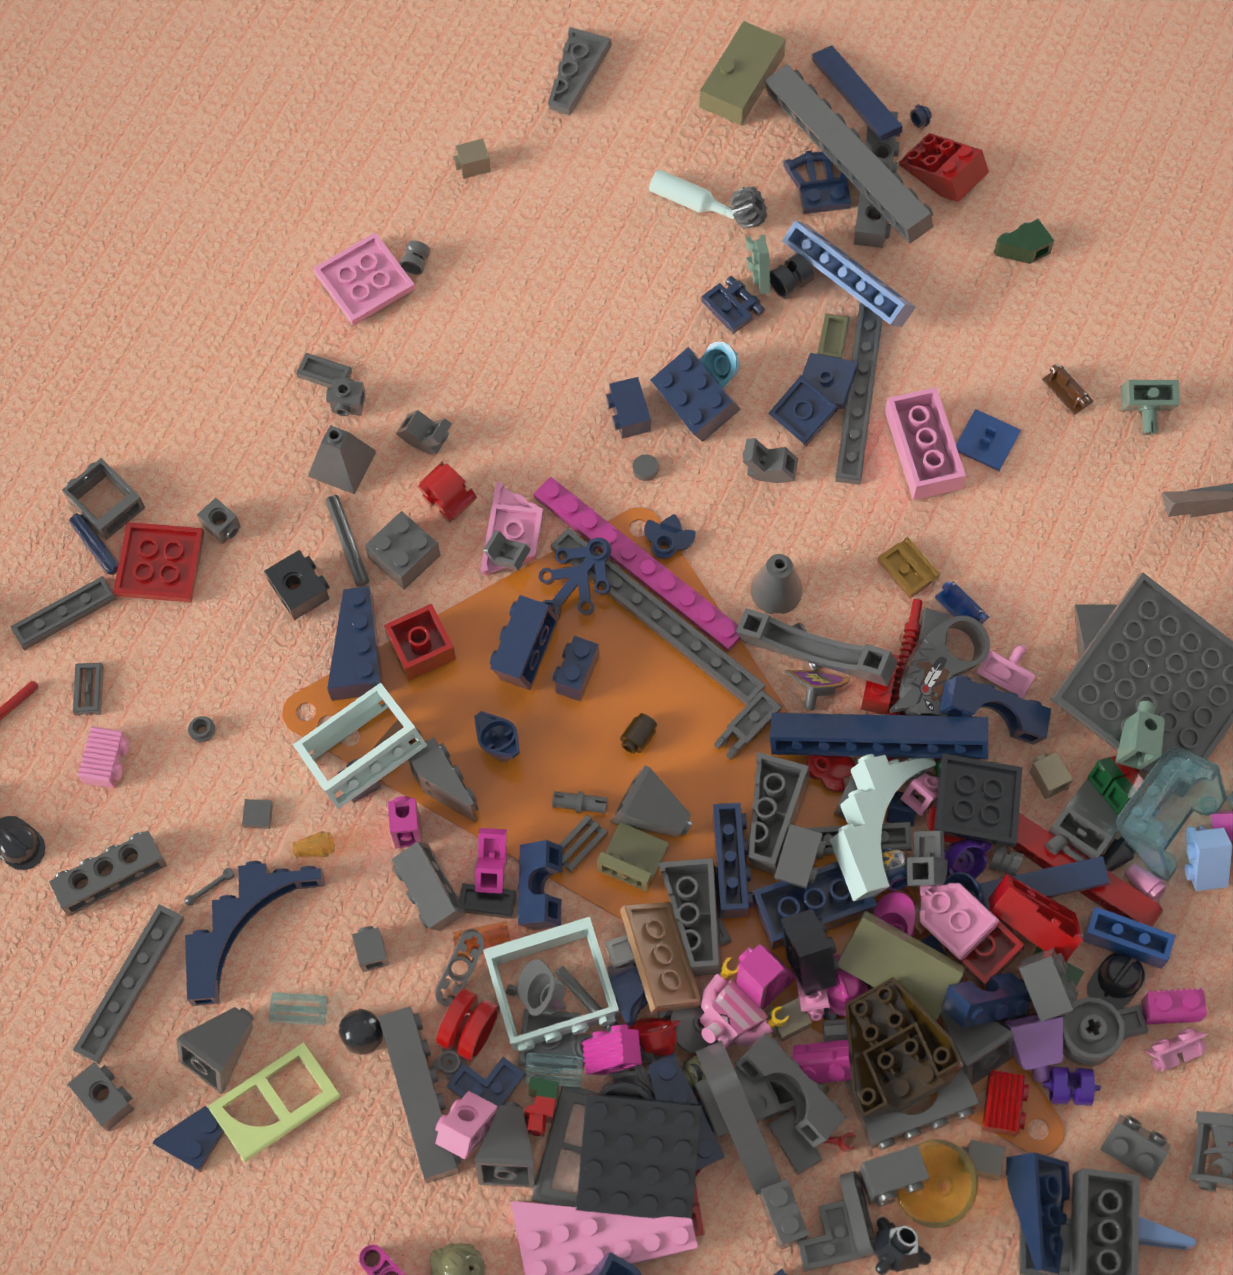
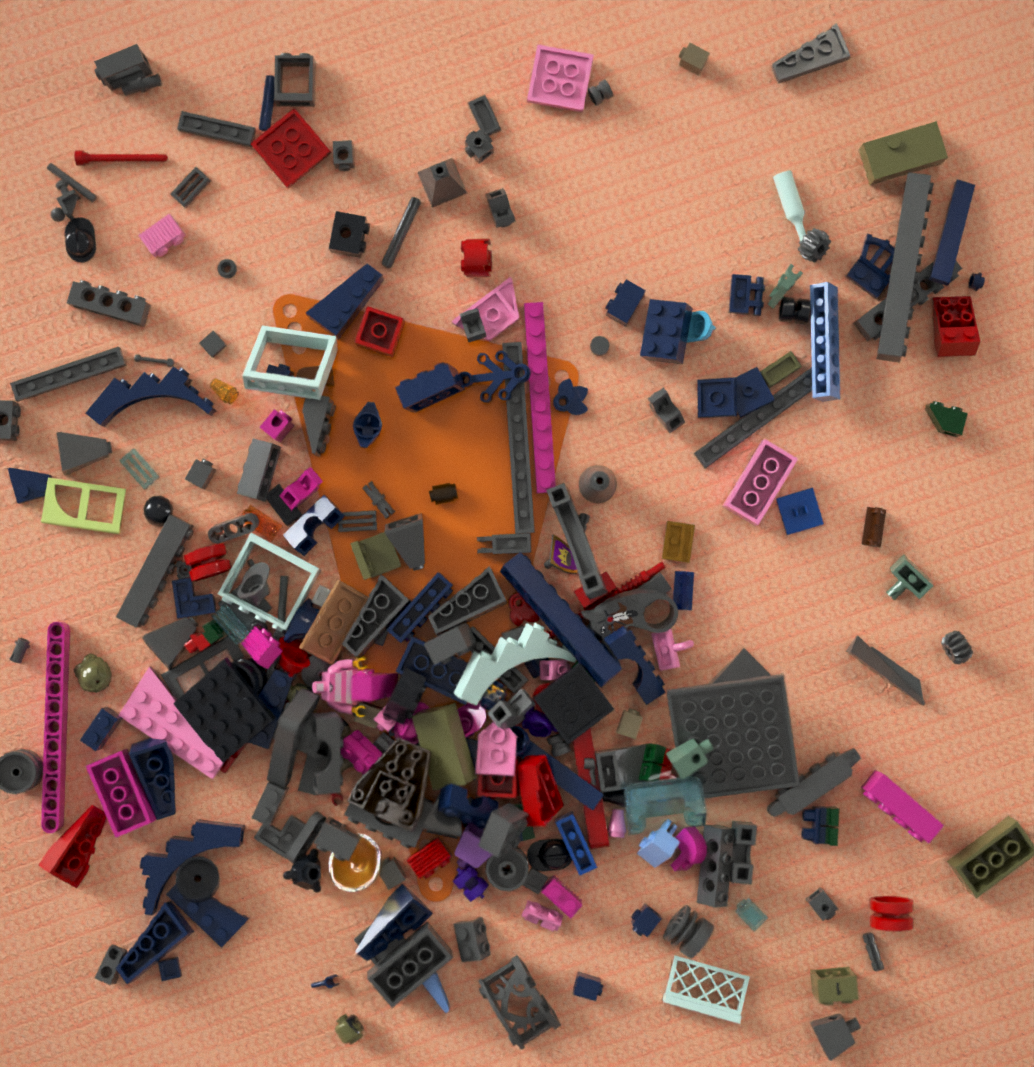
camera: 50 degrees right, 20 degrees up
(402, 550) = (422, 268): dark grey brick -> none
(465, 1124) = (149, 617): bright pink brick -> none
(577, 668) = (446, 426): dark blue brick -> none

